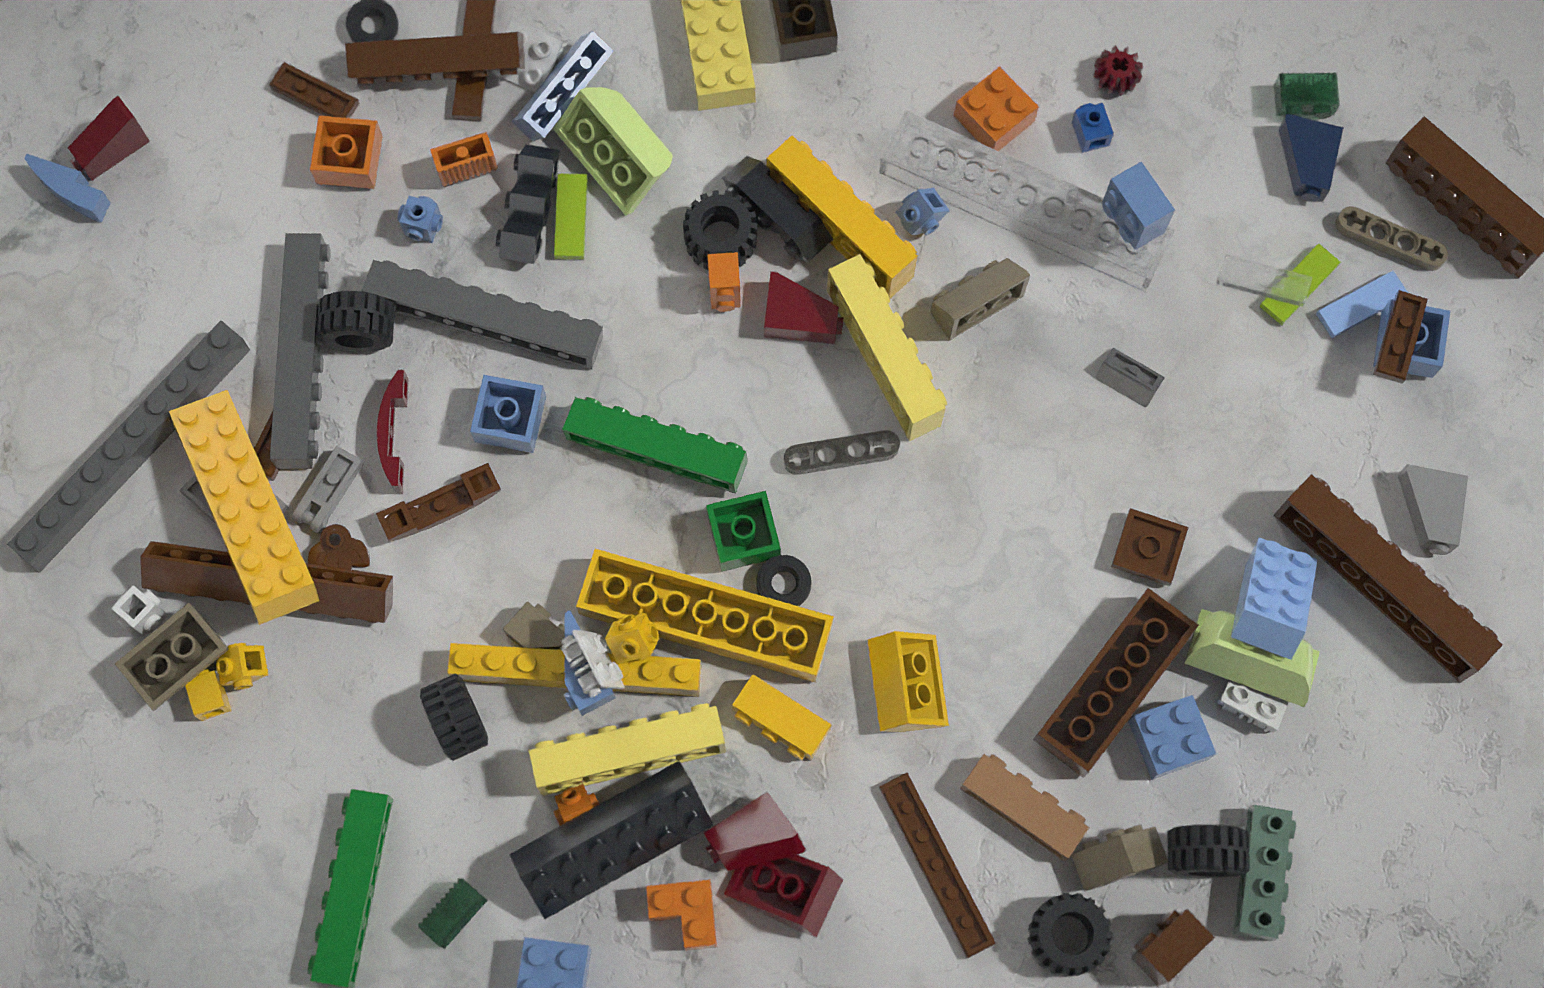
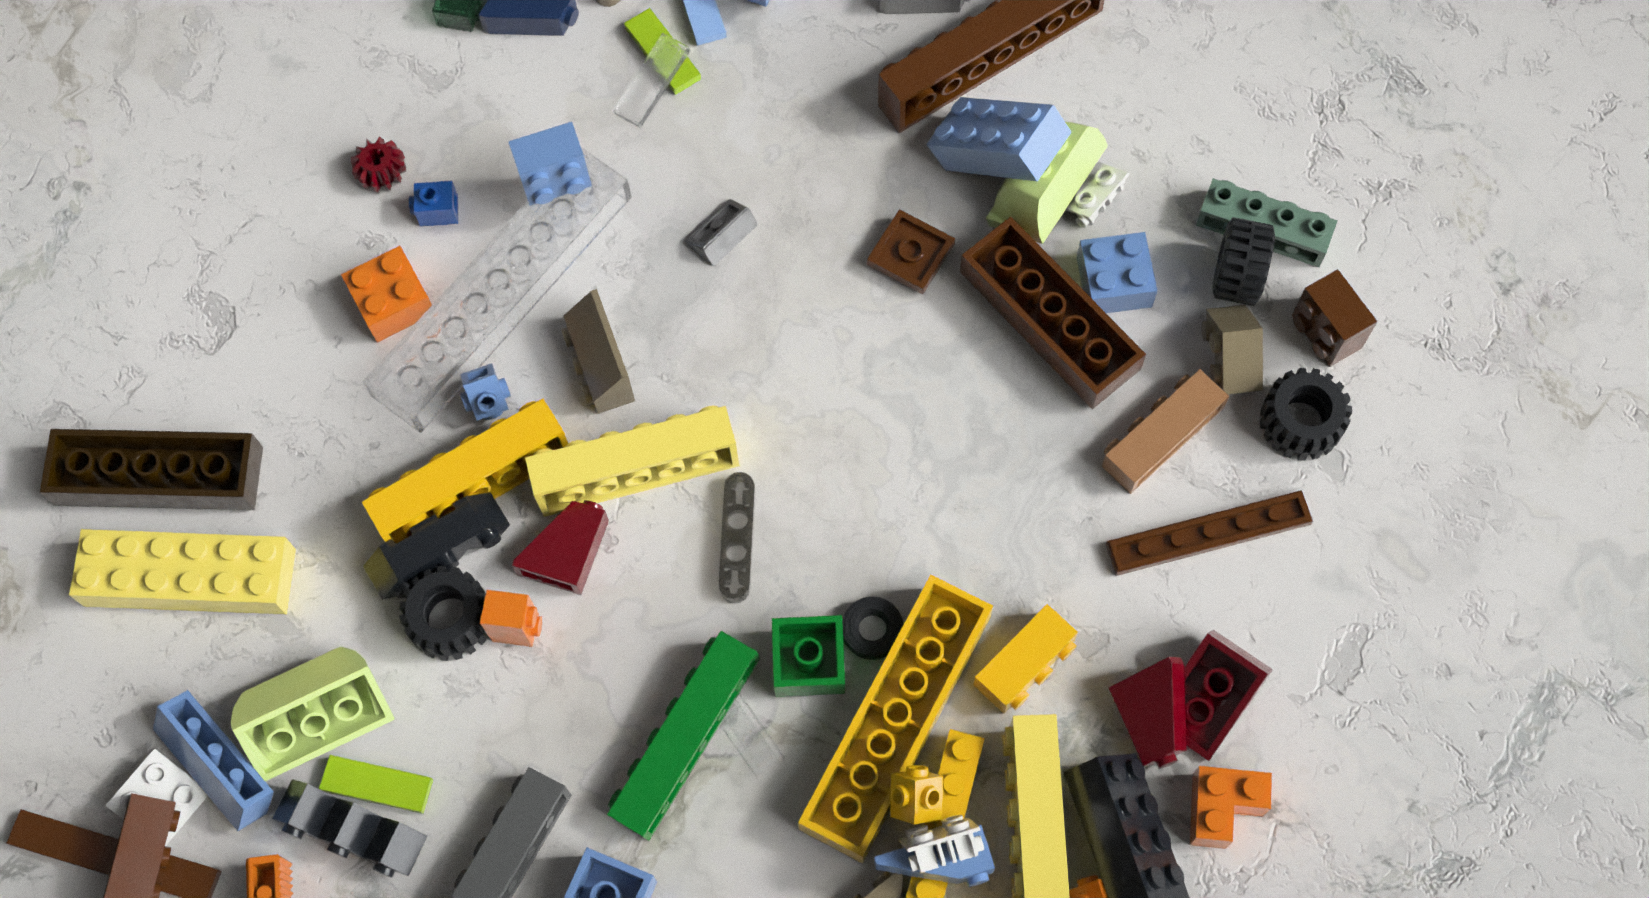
camera: 75 degrees left, 5 degrees down
(907, 682) = (1011, 520): yellow slope -> none

